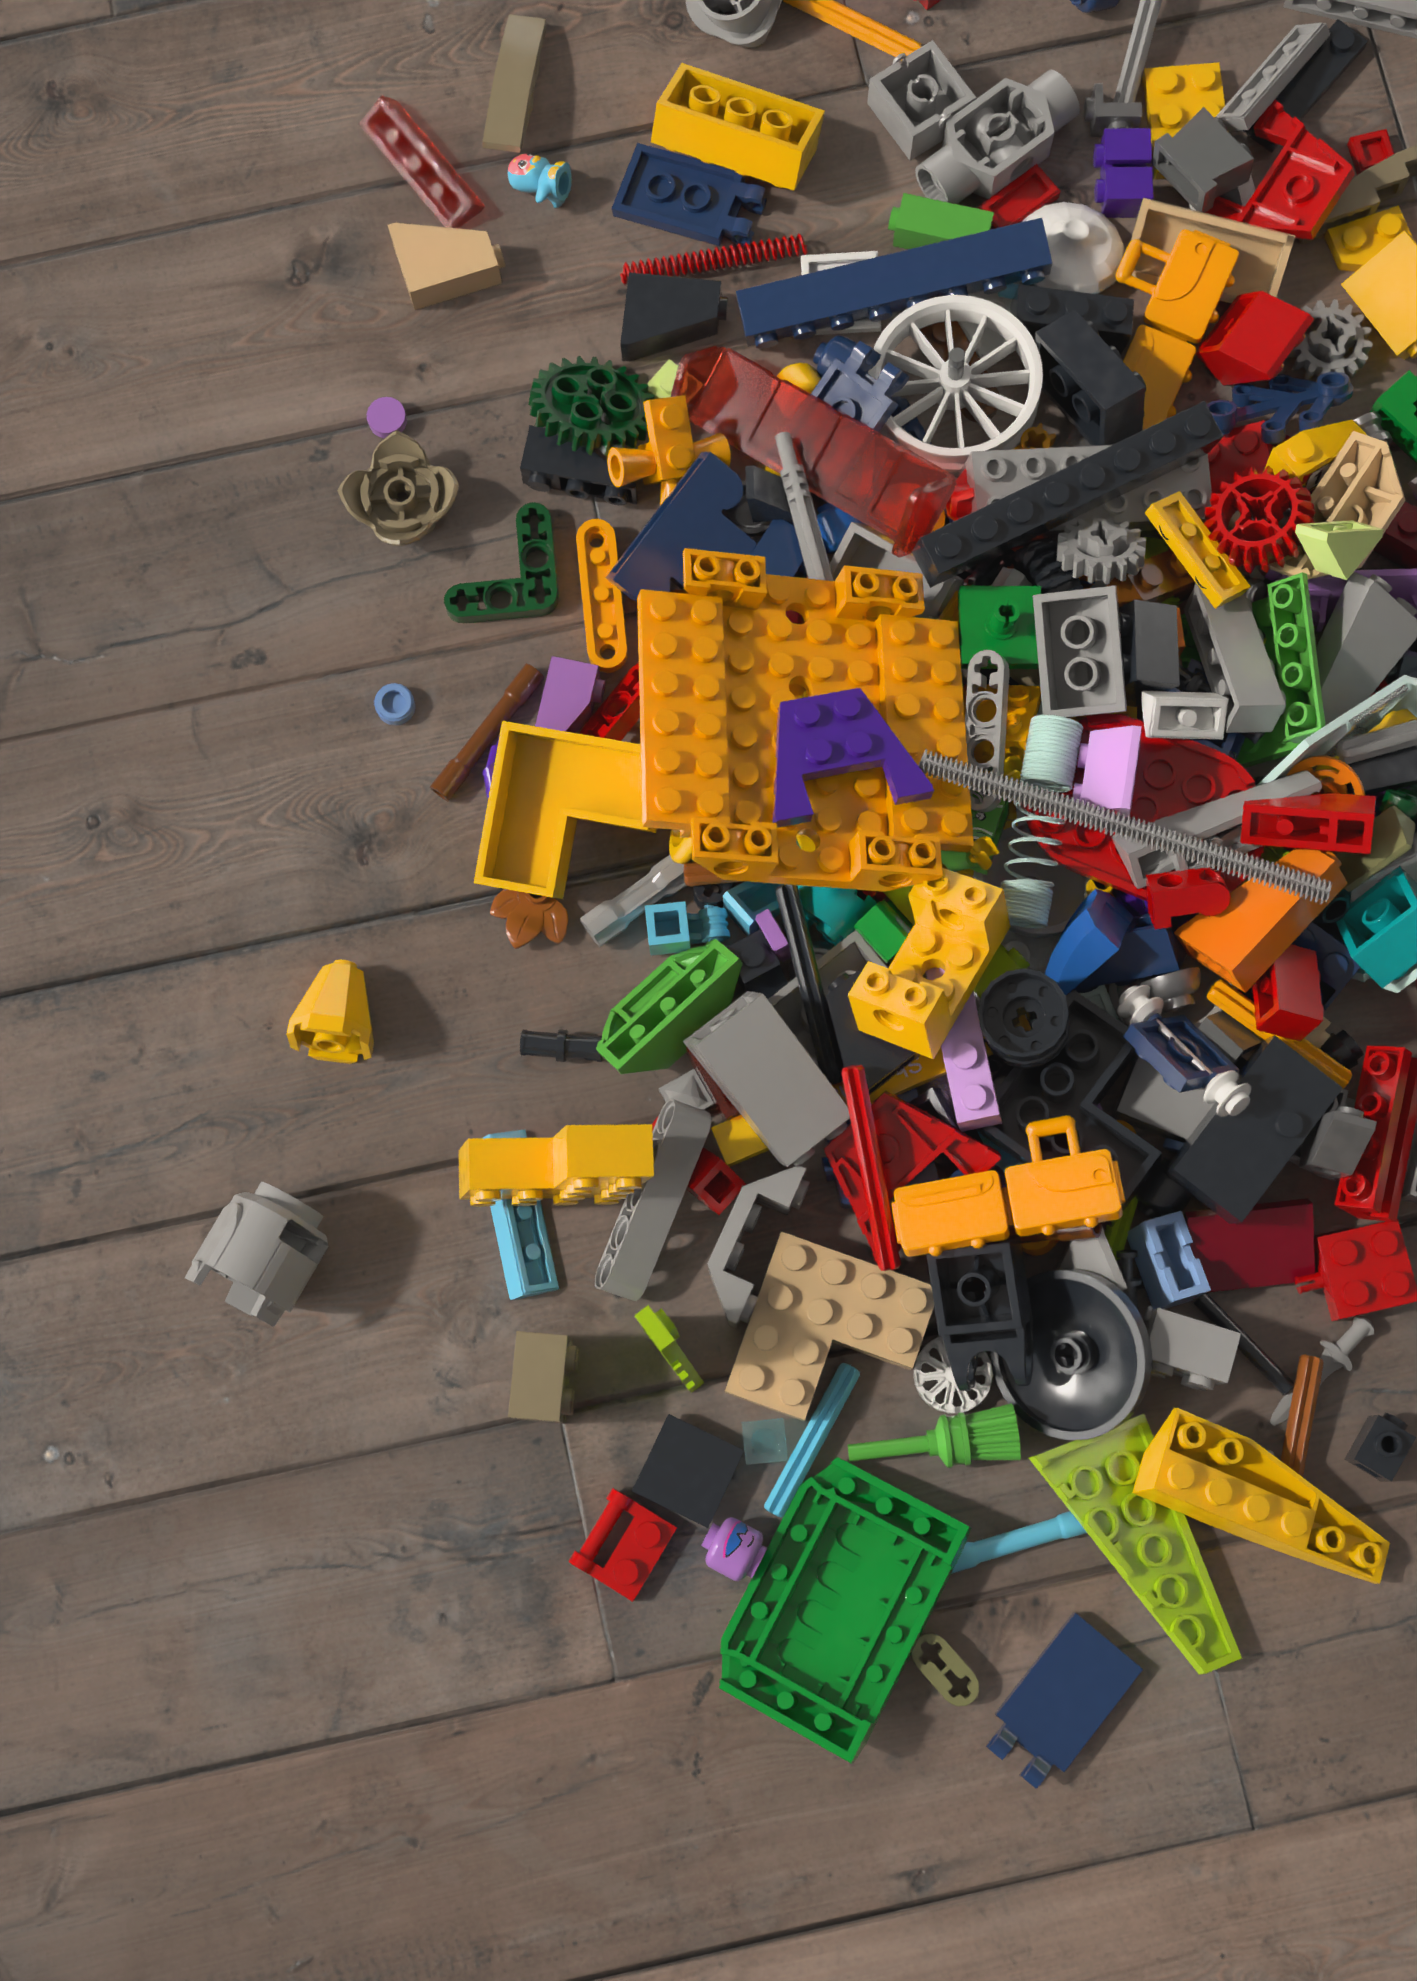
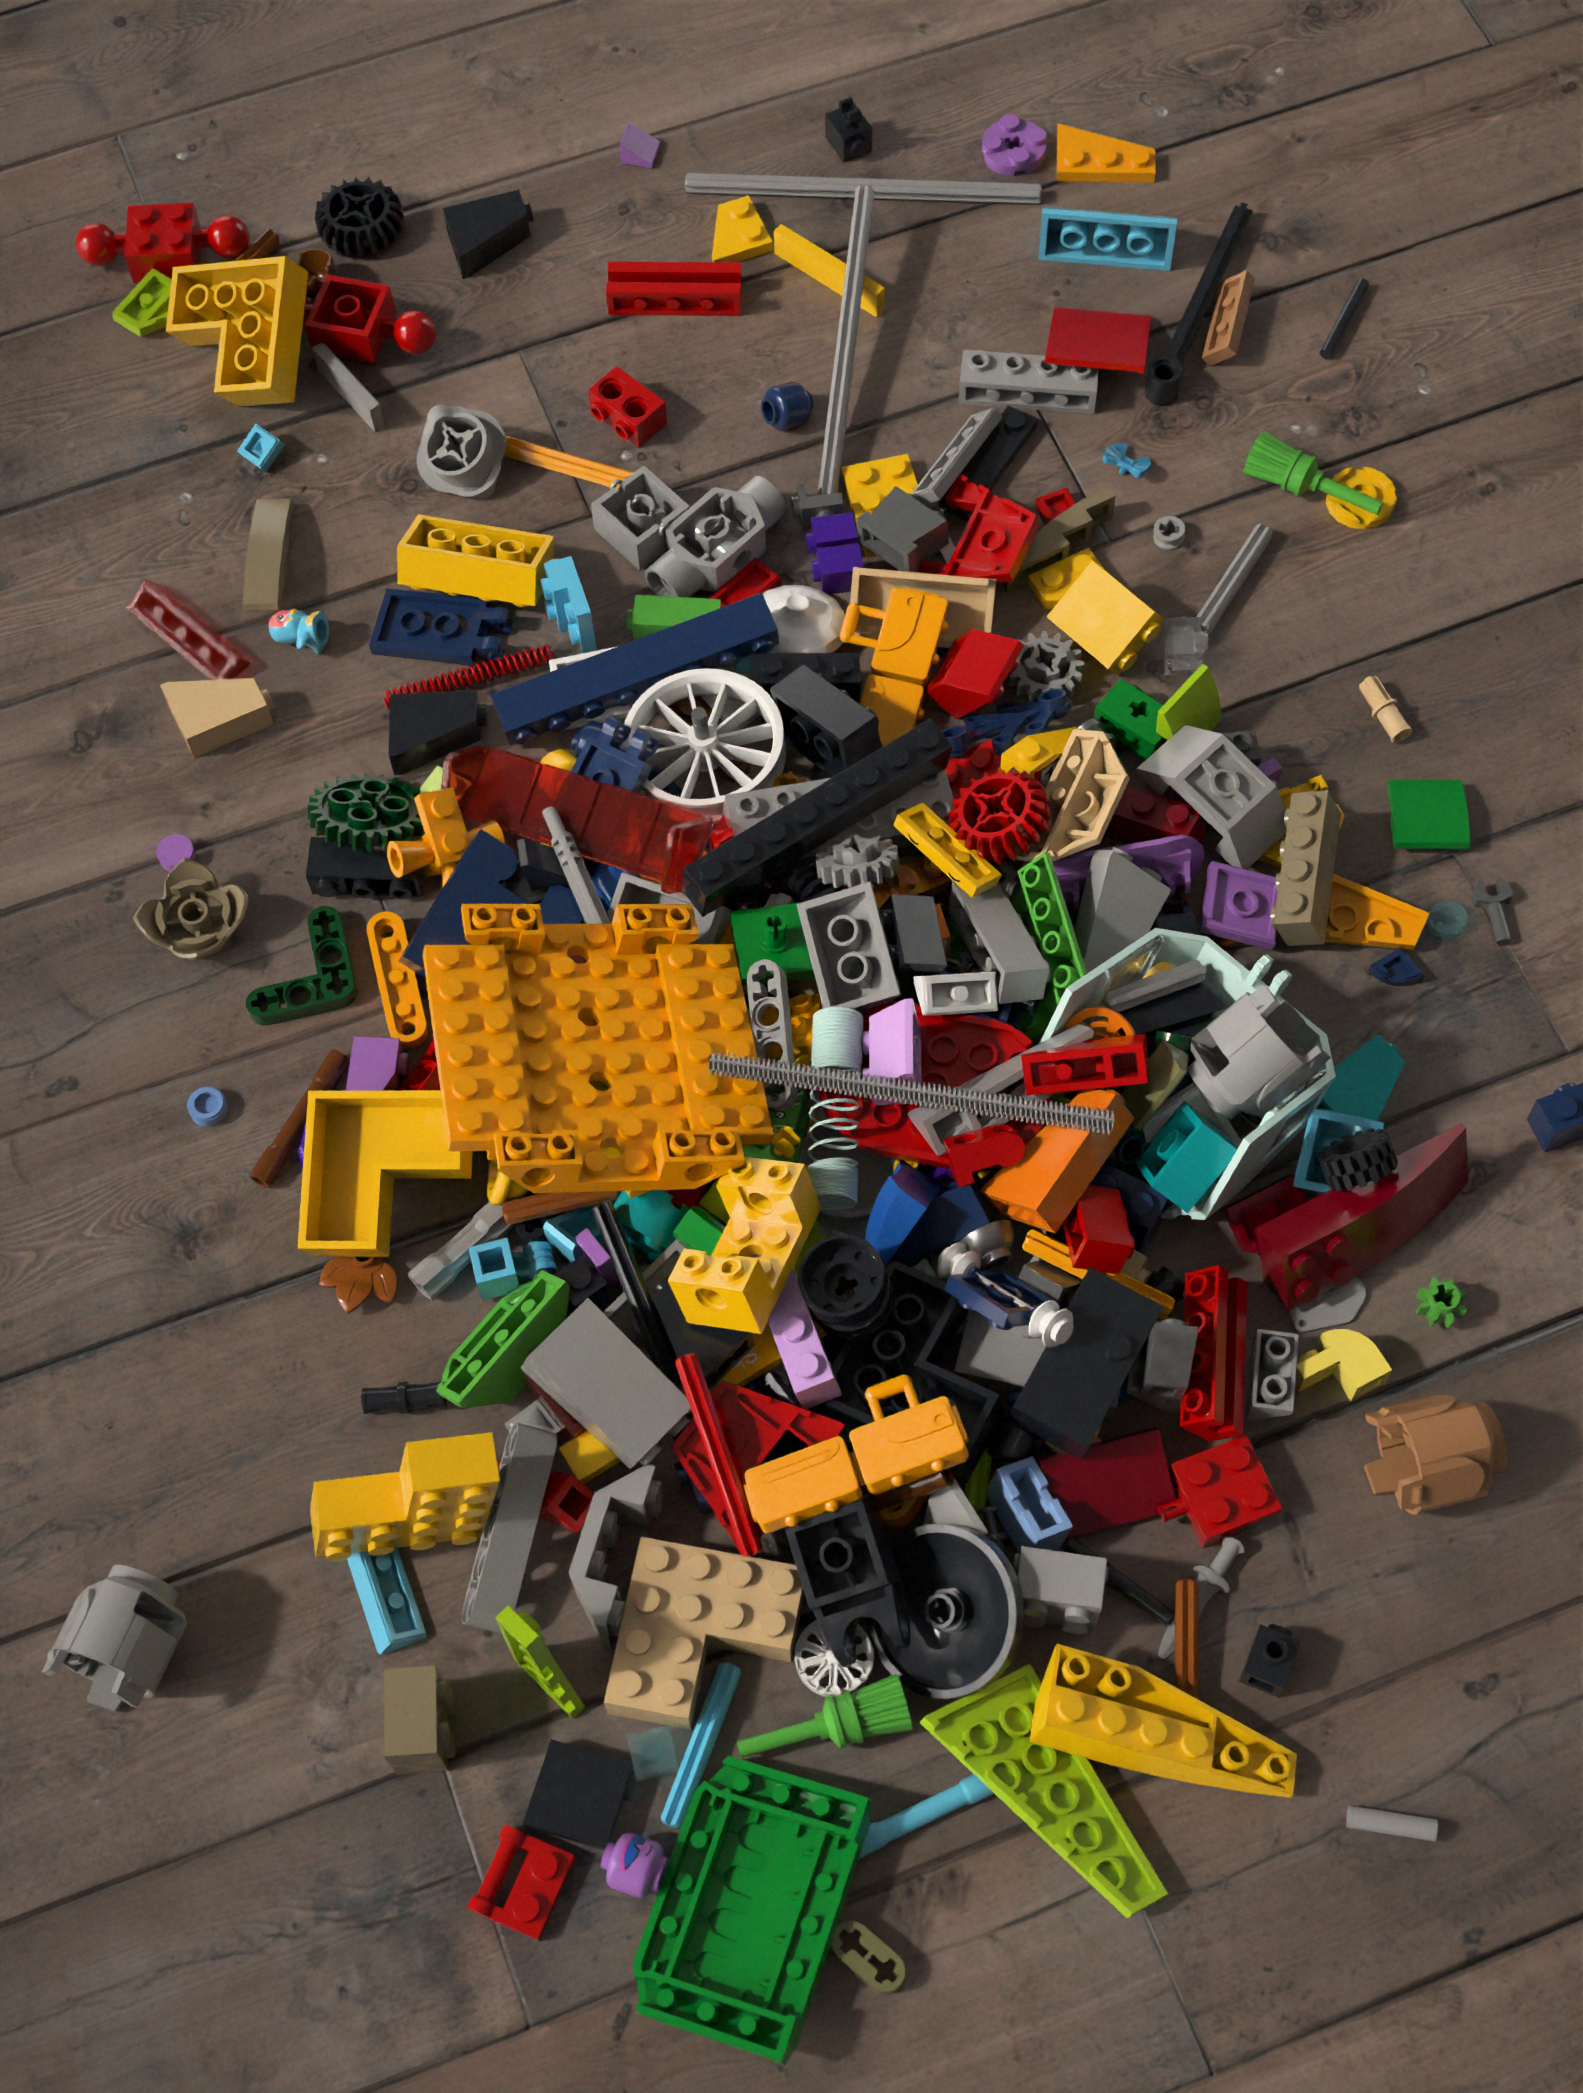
camera: 10 degrees left, 15 degrees down
(334, 1016) = (173, 1403): yellow cone -> none
(830, 193) = (568, 603): none -> medium azure plate
(835, 737) = (626, 1052): dark purple wing -> none
(1063, 1698) = (994, 1967): dark blue tile -> none
(1338, 545) = (1072, 826): yellowish green slope -> none

